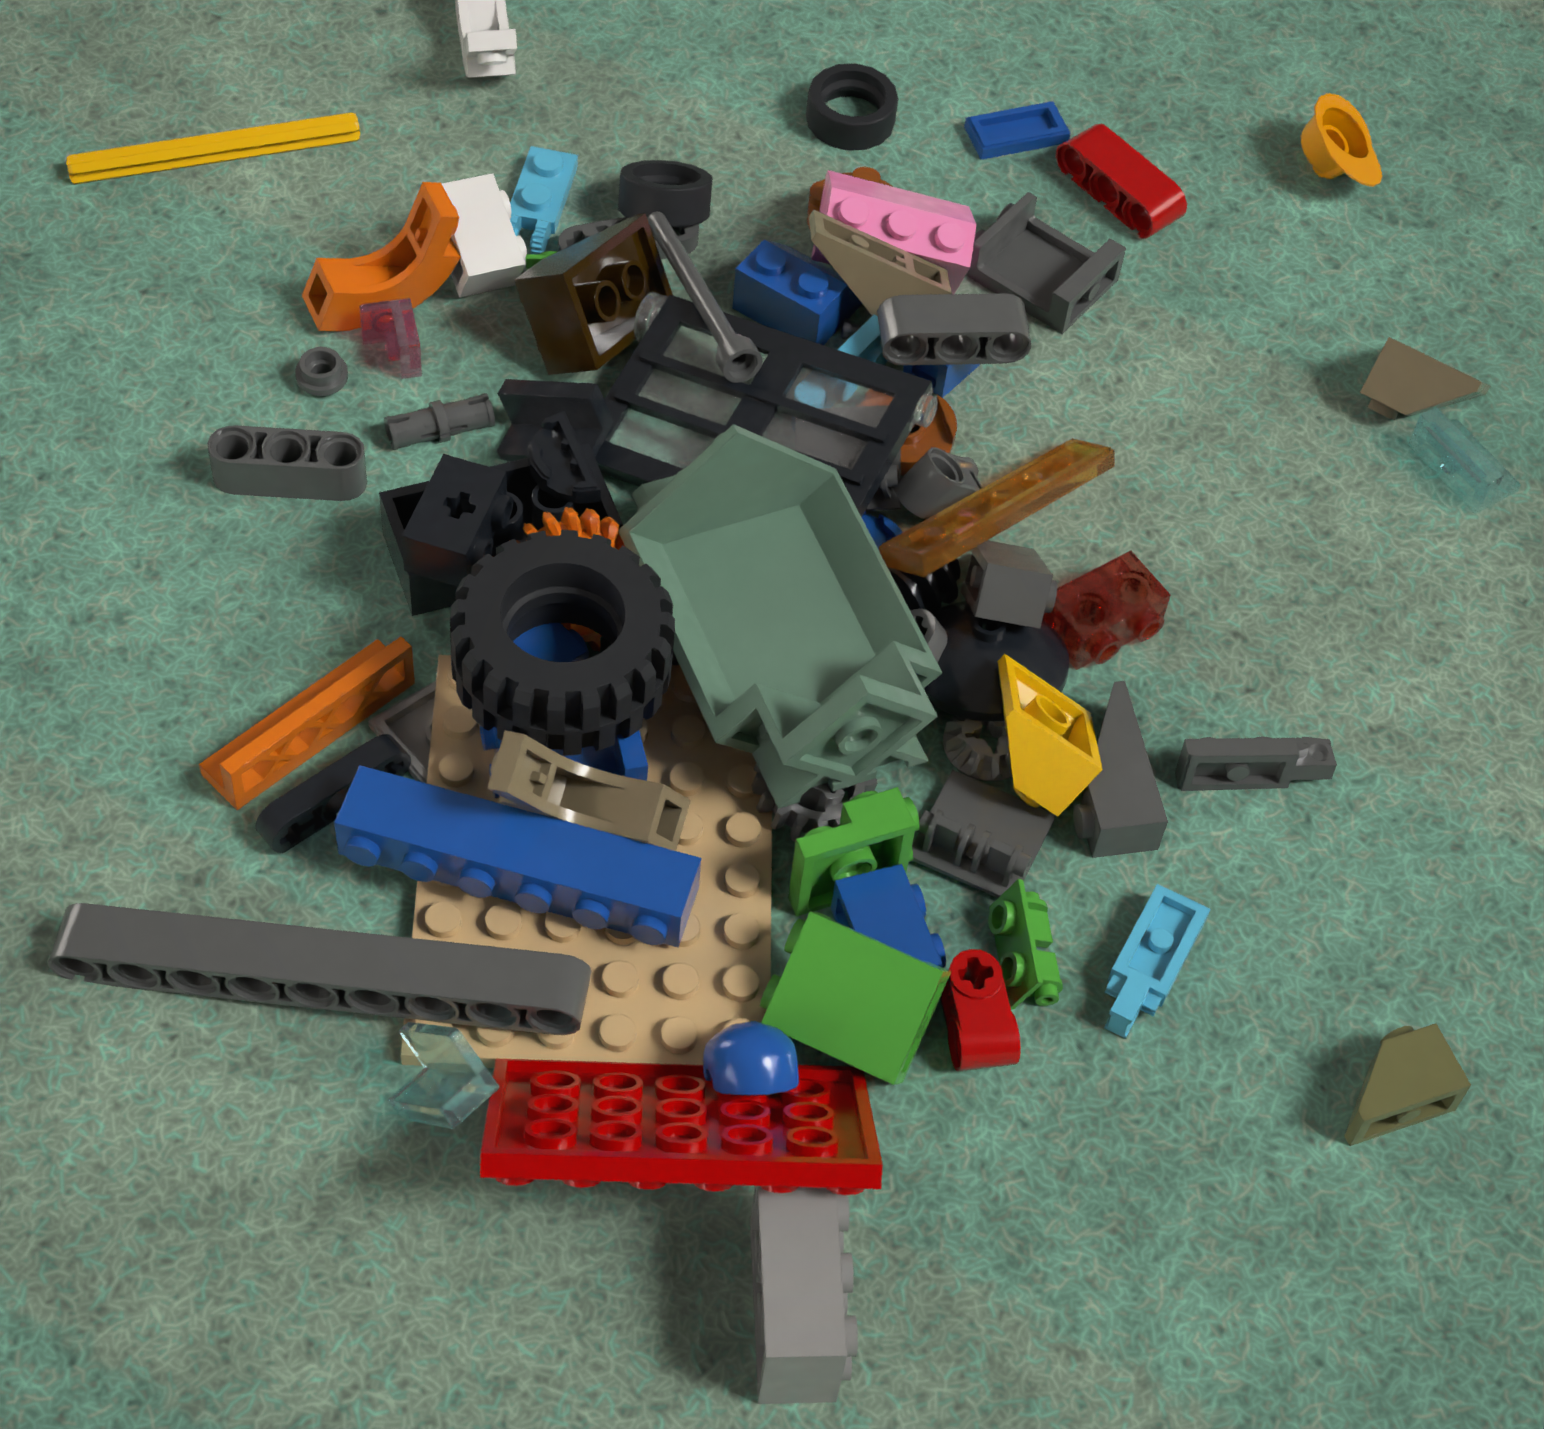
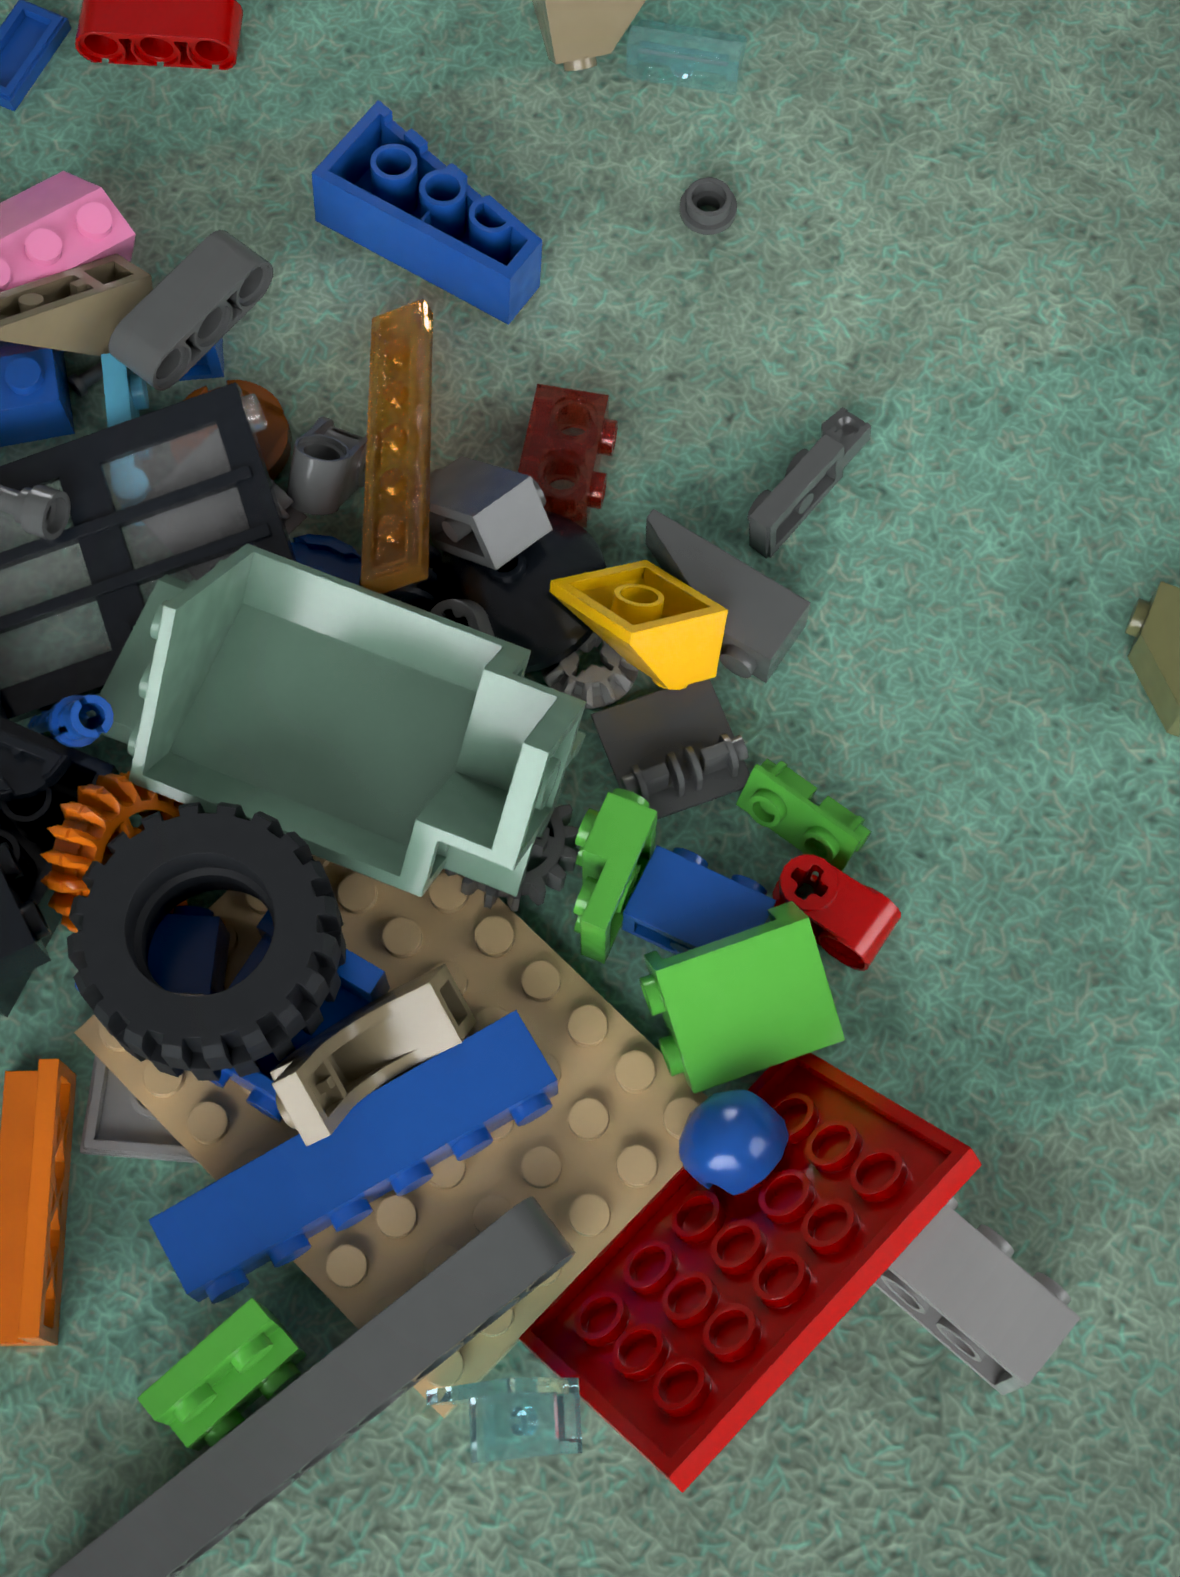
camera: 40 degrees left, 15 degrees up
(306, 883) = (224, 1376): none -> bright green plate
(319, 798) = (129, 1233): black beam -> none
(626, 475) = (71, 719): none -> blue pin
(1042, 265) = (181, 172): dark grey panel -> none
(1153, 957) = (902, 726): medium azure hinge -> none
(1168, 406) = (425, 217): none -> blue wedge
(1379, 546) = (713, 193): none -> dark grey plate

